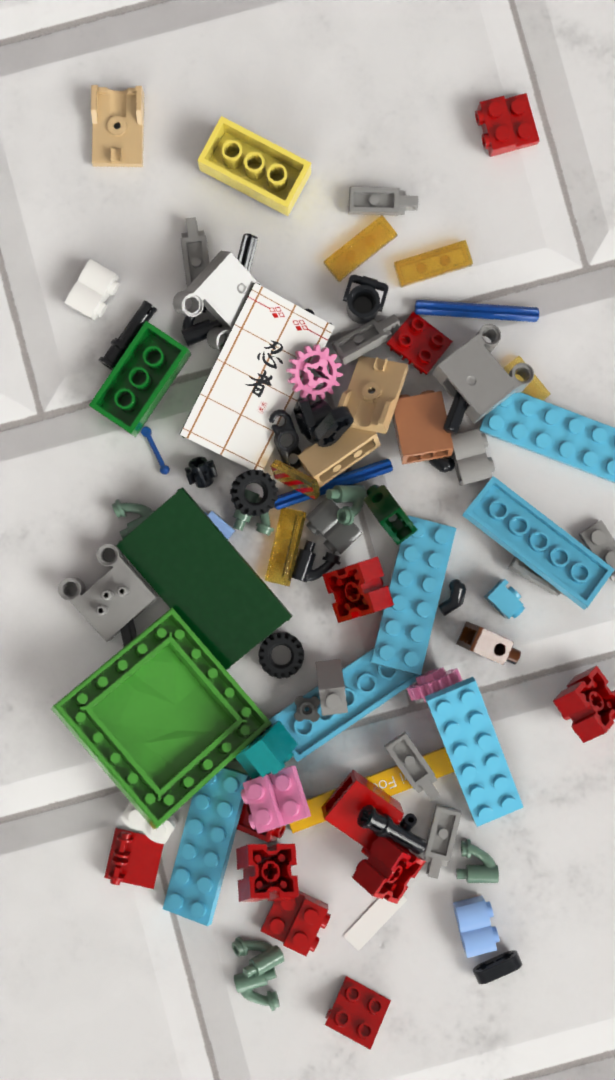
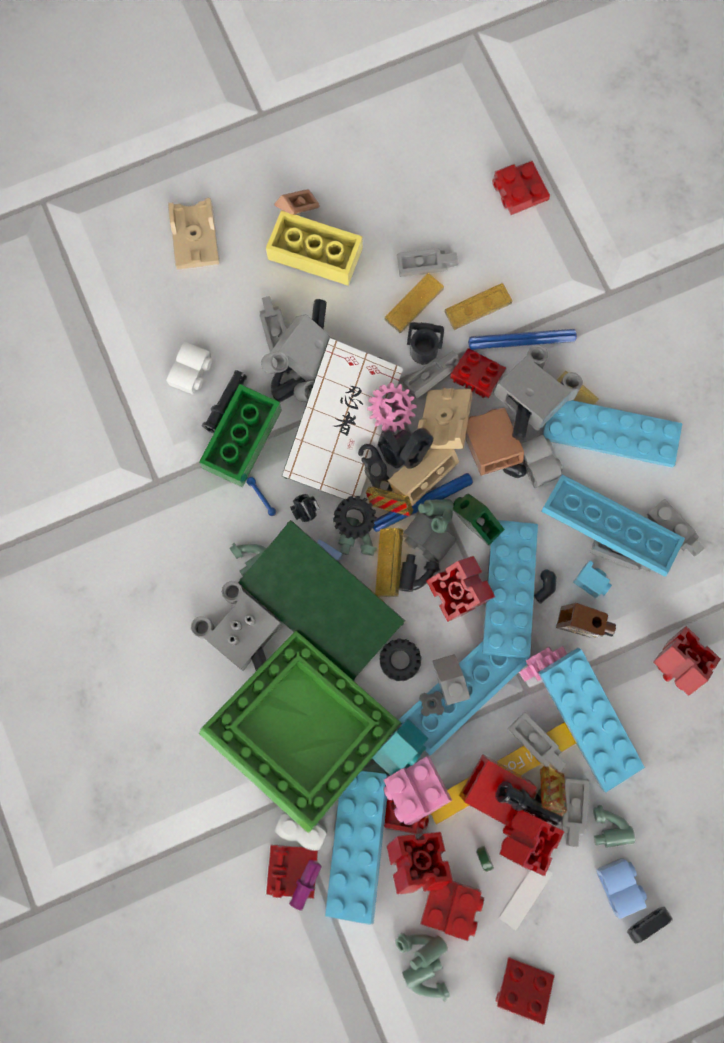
camera: 10 degrees left, 10 degrees down
(146, 875) = (305, 885): none -> magenta axle
(242, 107) = (297, 202): none -> nougat slope
(337, 876) = (484, 859): none -> dark green tile
(421, 819) = (553, 790): none -> clear yellow tile

